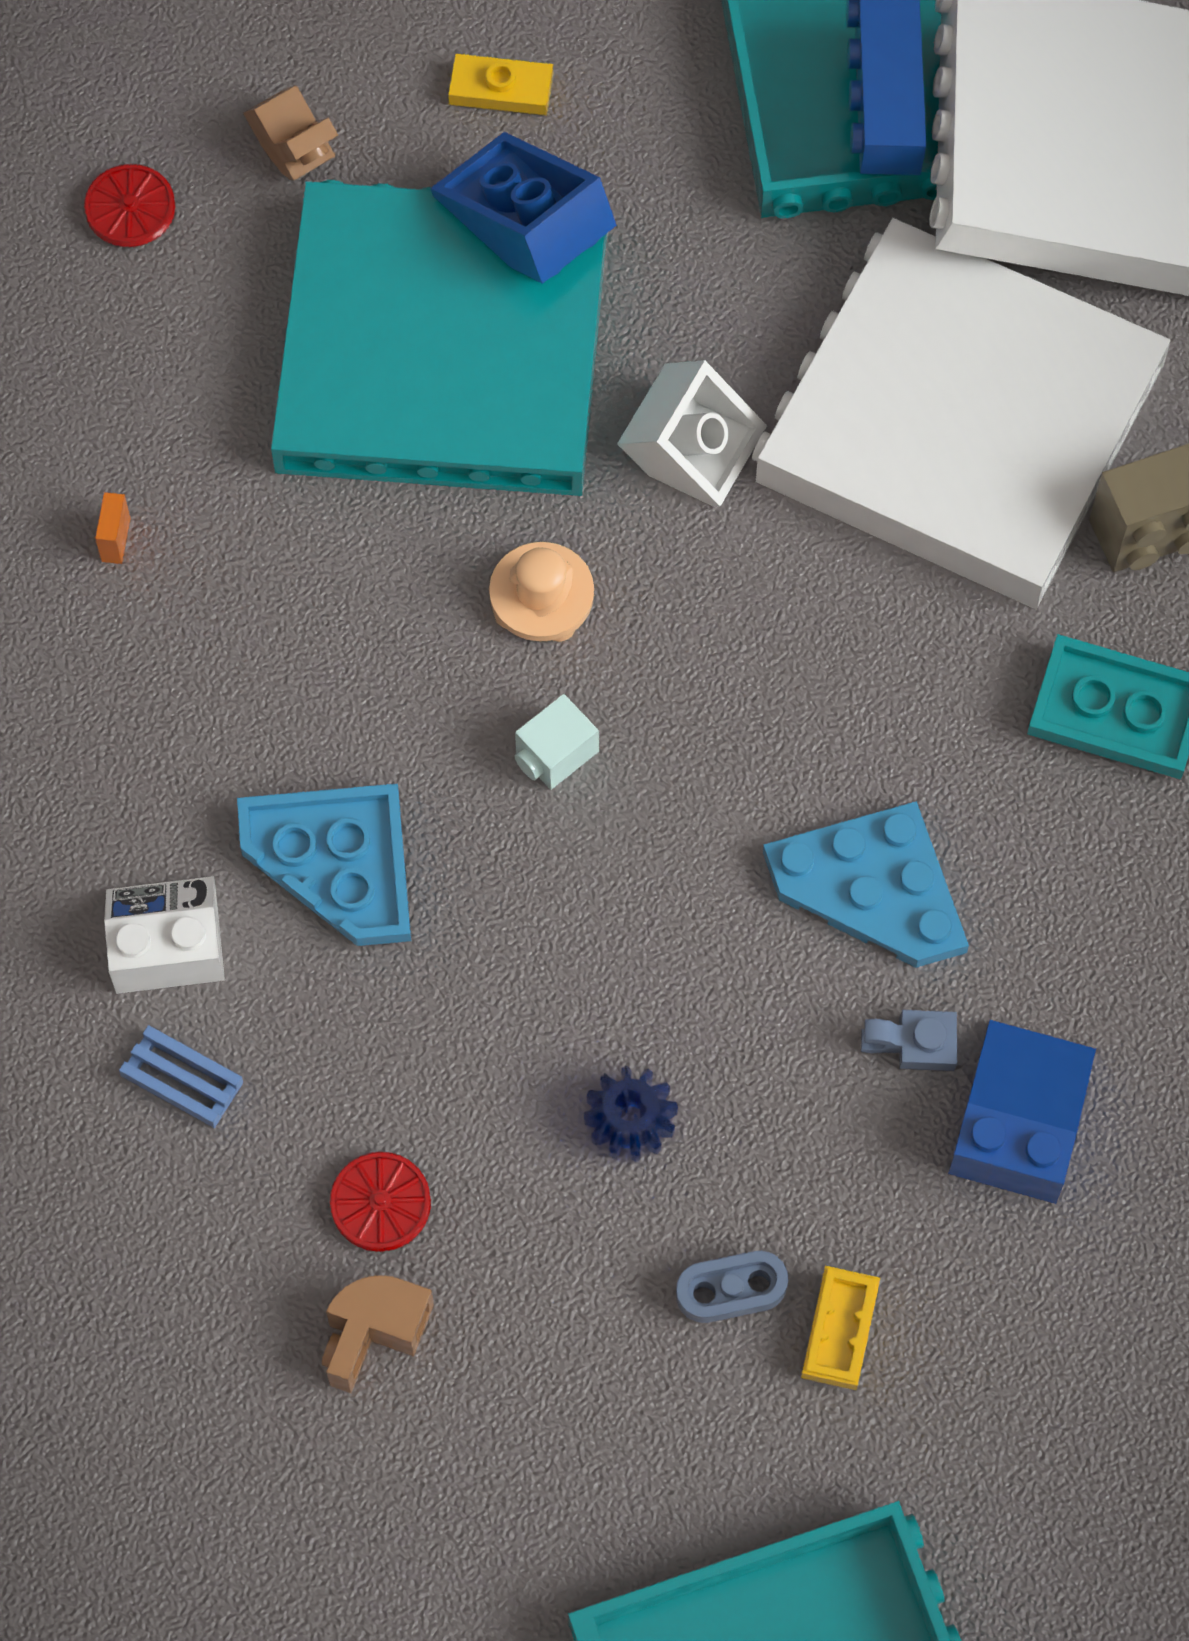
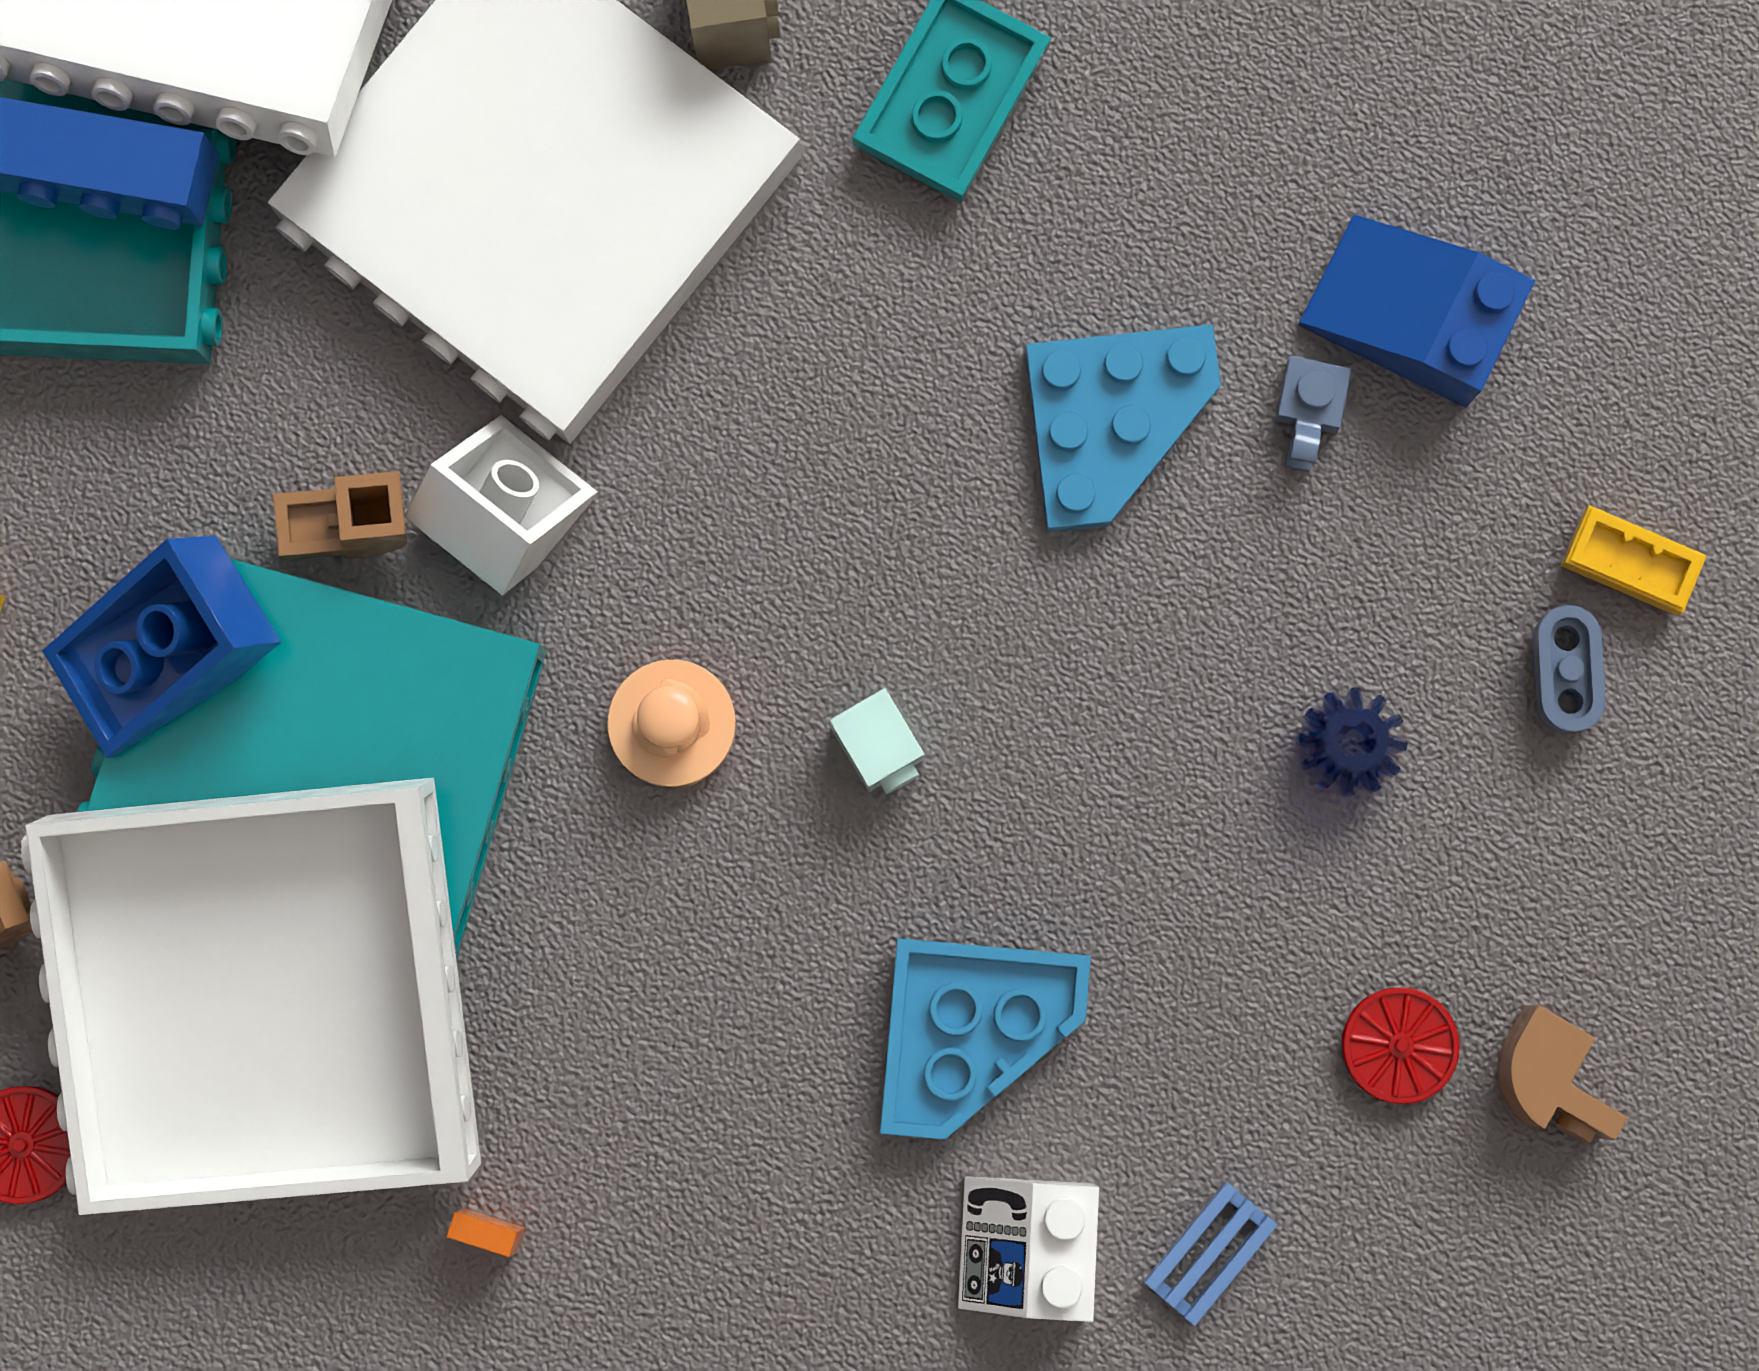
camera: 80 degrees left, 15 degrees up
(266, 323) = (253, 997): none -> white panel
(653, 319) = (352, 520): none -> medium nougat brick

